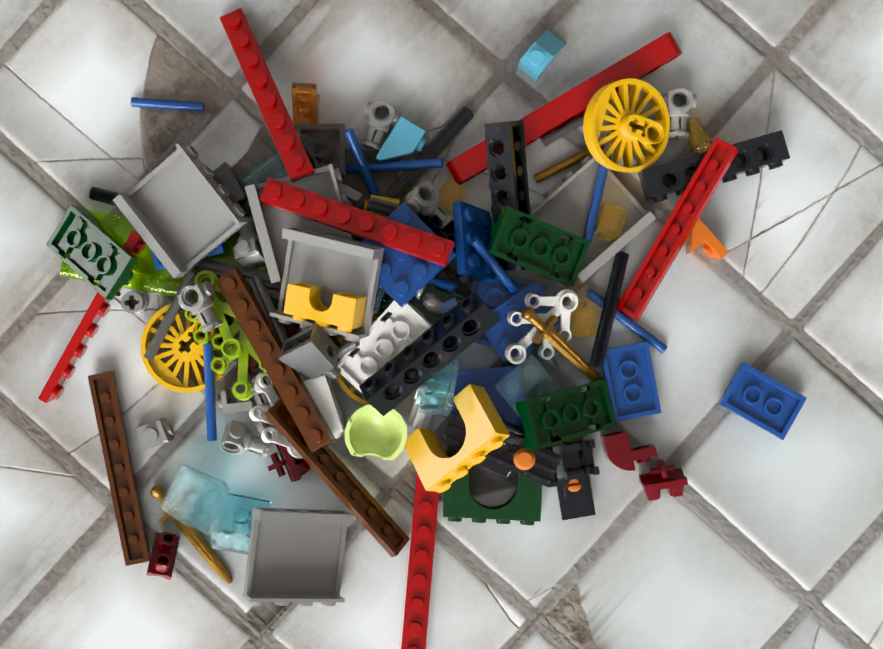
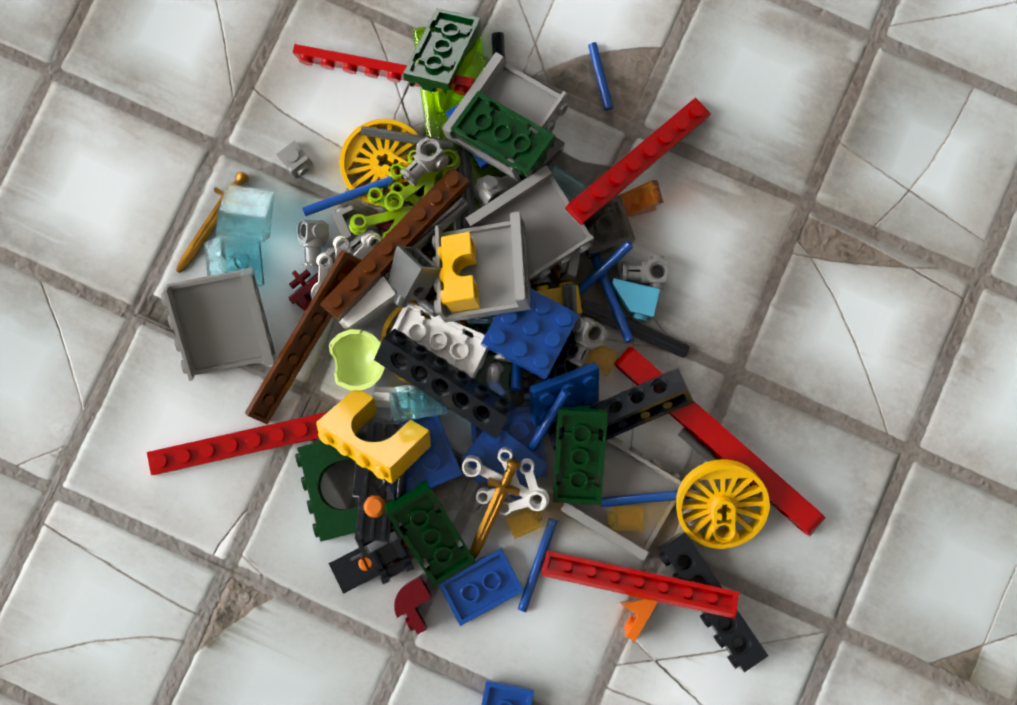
camera: 65 degrees right, 5 degrees down
(119, 468) = (252, 137): reddish brown plate -> none
(138, 308) = (409, 95): light grey bush -> none
(163, 555) = (184, 201): dark red hips -> none
(199, 219) = (503, 134): none -> dark green piece
(357, 222) = (546, 278): red plate -> none
(524, 382) = (448, 484): clear light blue slope -> none
(541, 55) = (761, 402): medium azure slope -> none
(560, 166) = (664, 456): pearl gold bar -> none
(609, 309) = (542, 543): black axle -> none
(663, 478) = (397, 647): dark red hips -> none
(679, 114) = (751, 552): light grey connector -> none
(698, 137) = (735, 577): clear yellow cone -> none

